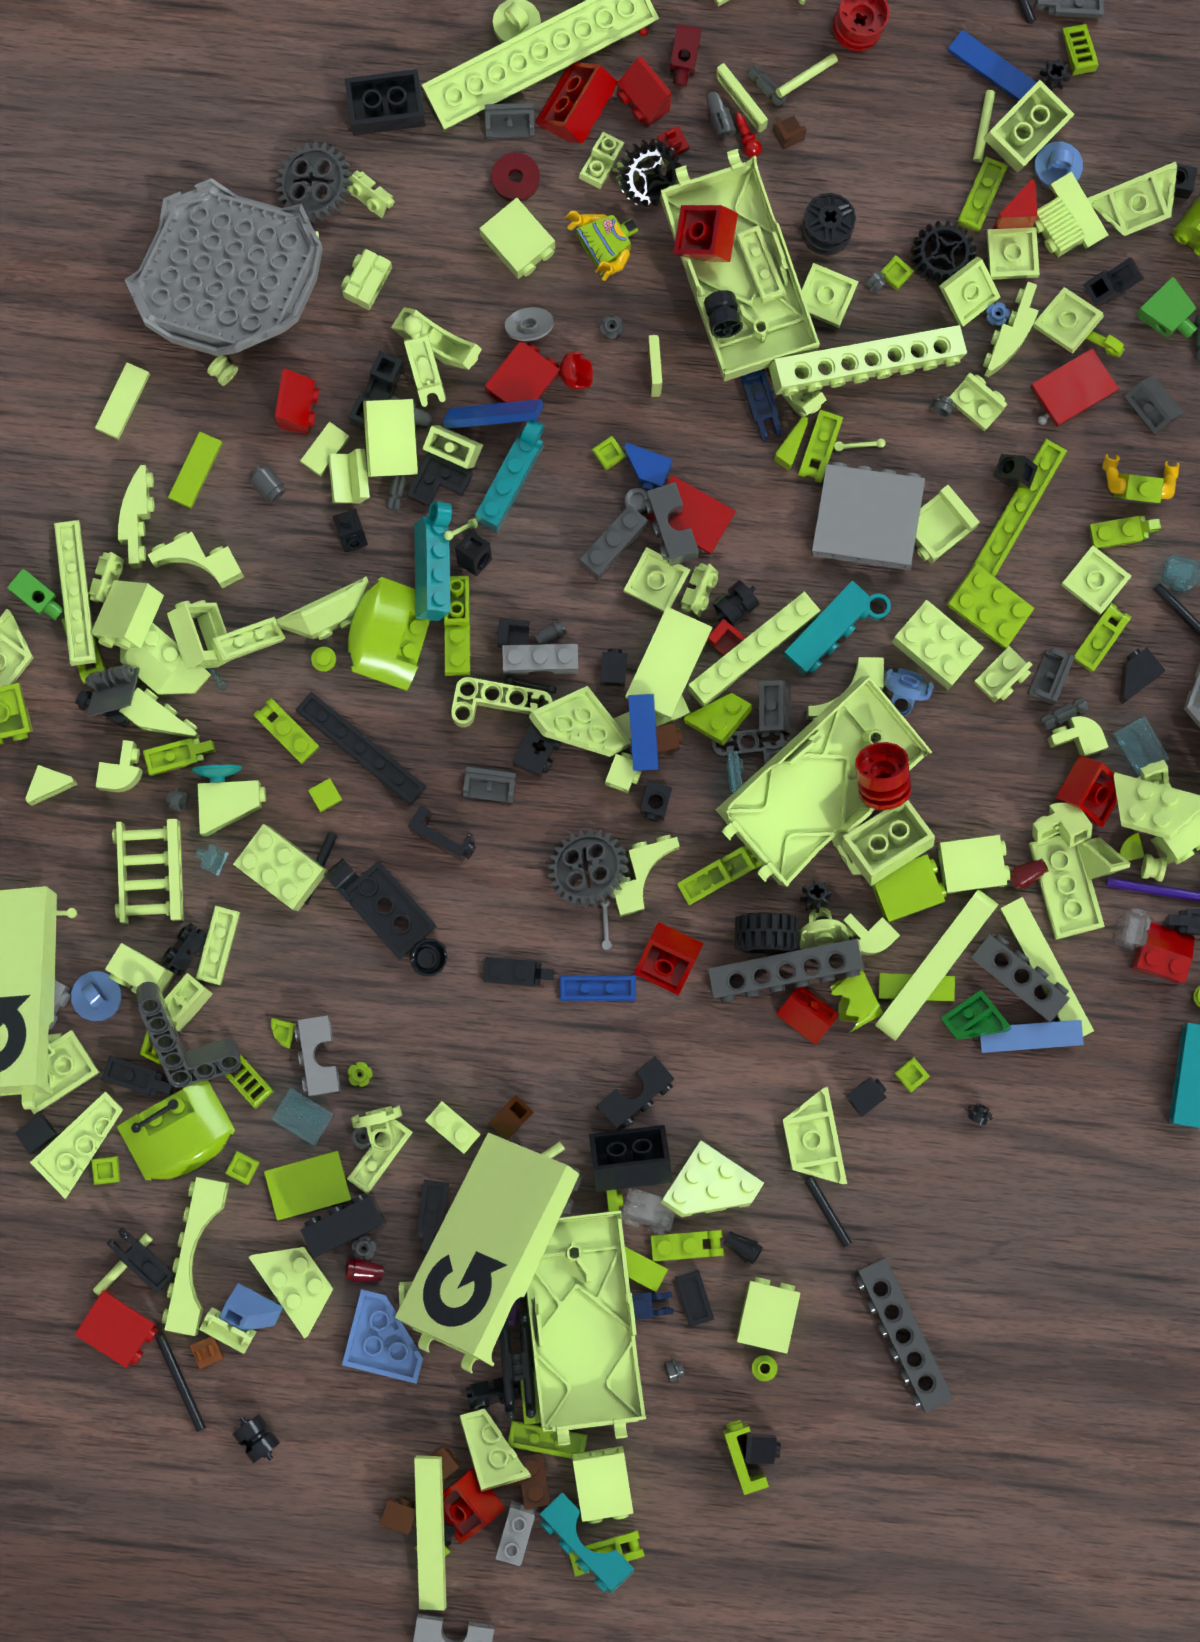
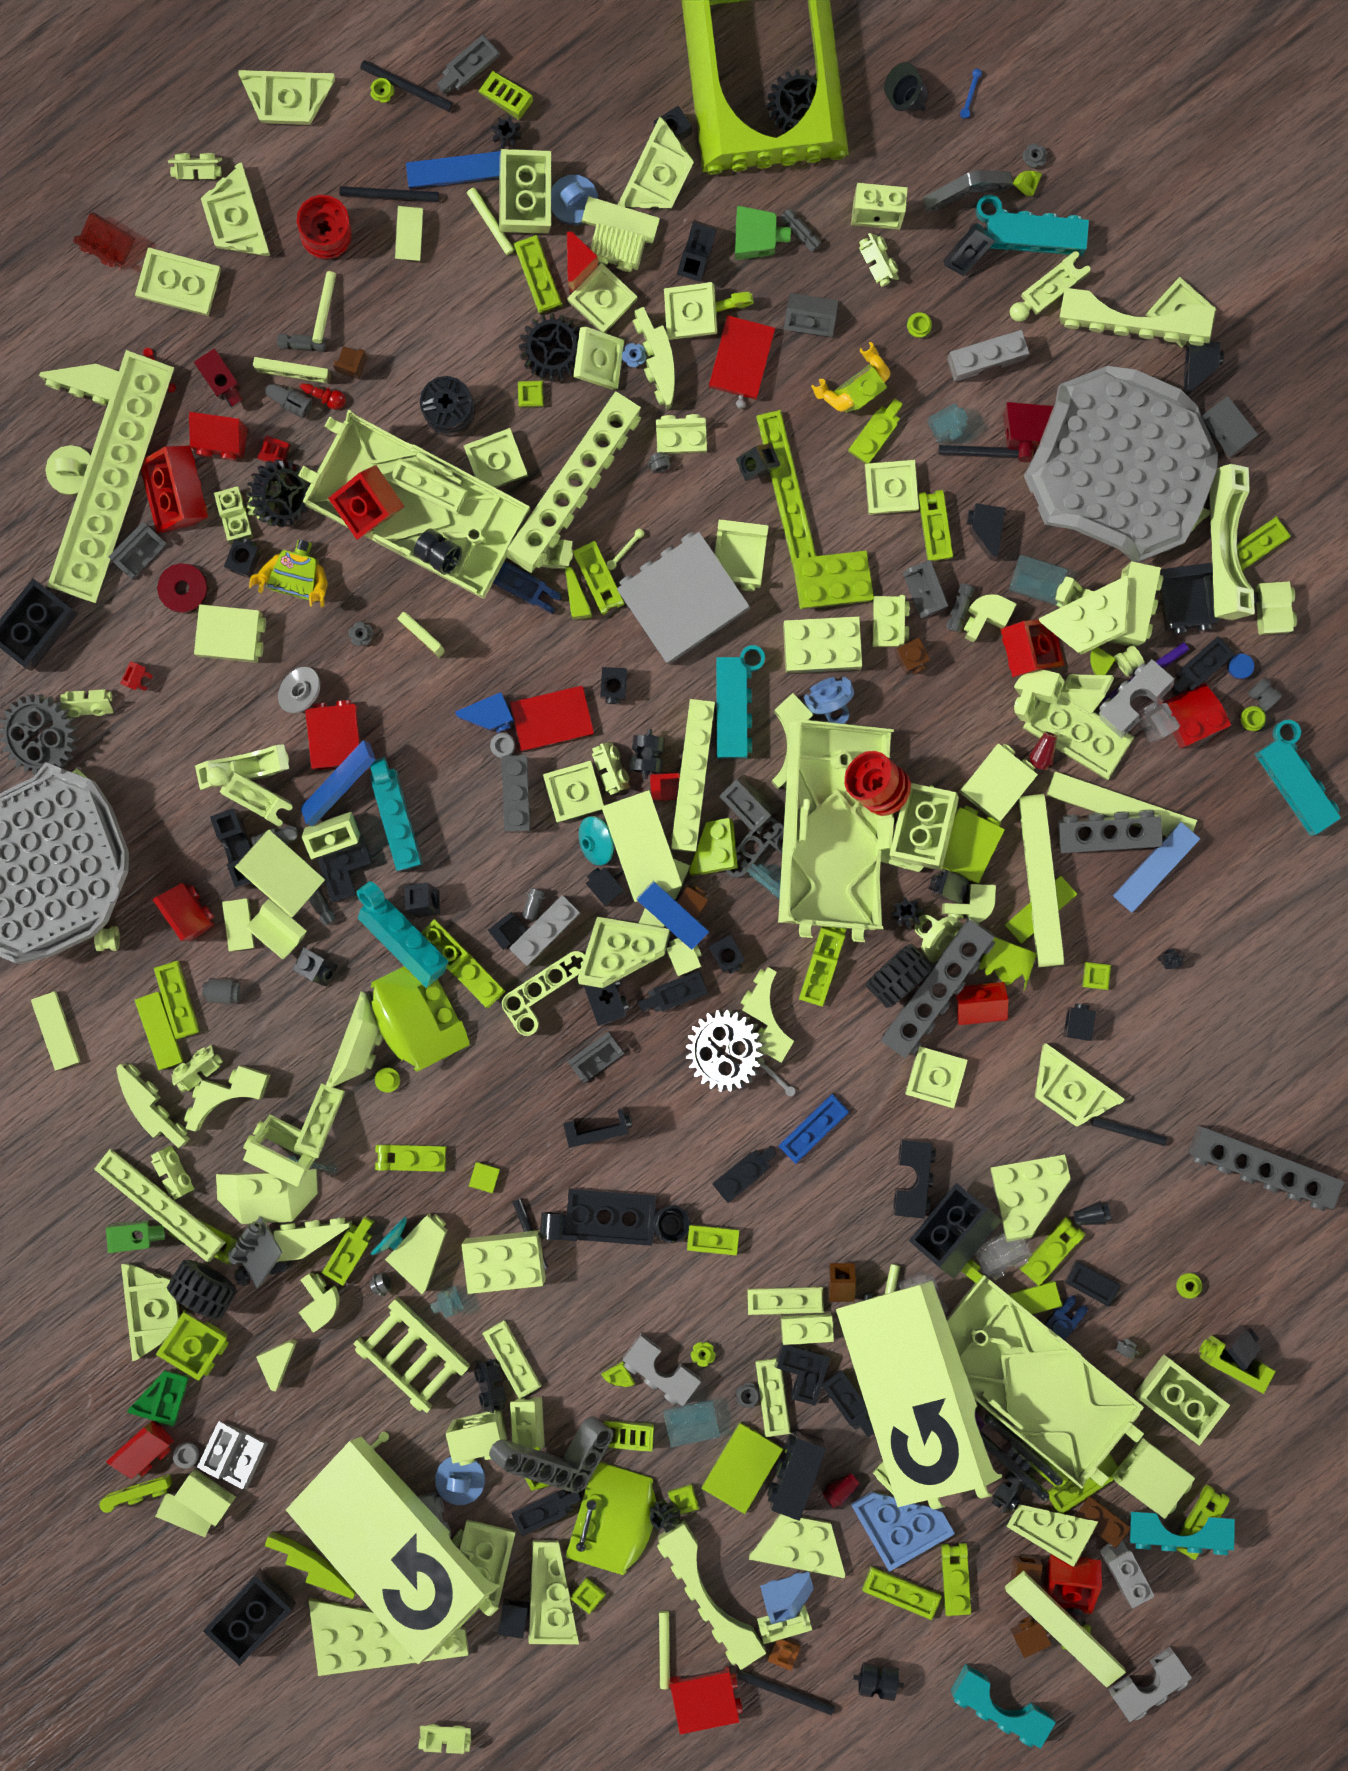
camera: 35 degrees left, 5 degrees up
(47, 678) = (201, 1289): none -> black tyre
(127, 614) = (214, 1187): yellowish green brick -> none
(142, 1262) = (677, 1636): black hinge -> none
(205, 521) = (187, 1074): none -> yellowish green hinge
(218, 1164) = (665, 1515): none -> black gear
(229, 460) = (177, 1000): none -> lime tile
(335, 1391) = (901, 1593): none -> lime tile
(337, 1580) = (1029, 1722): none -> teal arch
(360, 748) = (477, 1119): black tile -> none
(366, 279) = (147, 770): yellowish green brick -> none
(370, 1247) = (831, 1474): dark grey plate -> none
(376, 1122) = (749, 1376): yellowish green tile -> none
(384, 1420) = (956, 1580): none -> lime plate
(421, 204) = (133, 676): none -> red tile
(427, 1159) = (810, 1371): none -> black plate
(447, 998) = (713, 1239): none -> lime plate
(457, 1093) = (785, 1300): none -> yellowish green tile
(472, 523) = (399, 877): yellowish green hinge -> none
(511, 680) = (537, 965): black hinge -> none
(575, 204) = (247, 568): none -> black brick
(576, 371) = (367, 692): red hair -> none
(591, 793) = (675, 992): none -> black hinge
(608, 453) = (448, 730): lime tile -> none
(639, 629) = (596, 840): none -> teal dish
(668, 958) = (844, 1059): red slope -> none
(676, 545) = (526, 732): dark grey arch -> none
(678, 1445) = (1181, 1400): none -> yellowish green brick
(723, 1035) = (936, 1077): none -> yellowish green plate
(761, 521) = (609, 674): none -> black brick
(768, 1315) = (1157, 1246): yellowish green brick -> none
(865, 902) = (948, 886): none -> black slope
(876, 282) = (522, 416): dark grey plate -> none
(917, 28) = (389, 194): none -> black bar
(917, 80) = (408, 233): none -> yellowish green slope
(975, 1018) = (1104, 893): green wing -> none
(996, 714) = (912, 656): none -> reddish brown brick
(1153, 894) = (1150, 682): none -> light grey arch

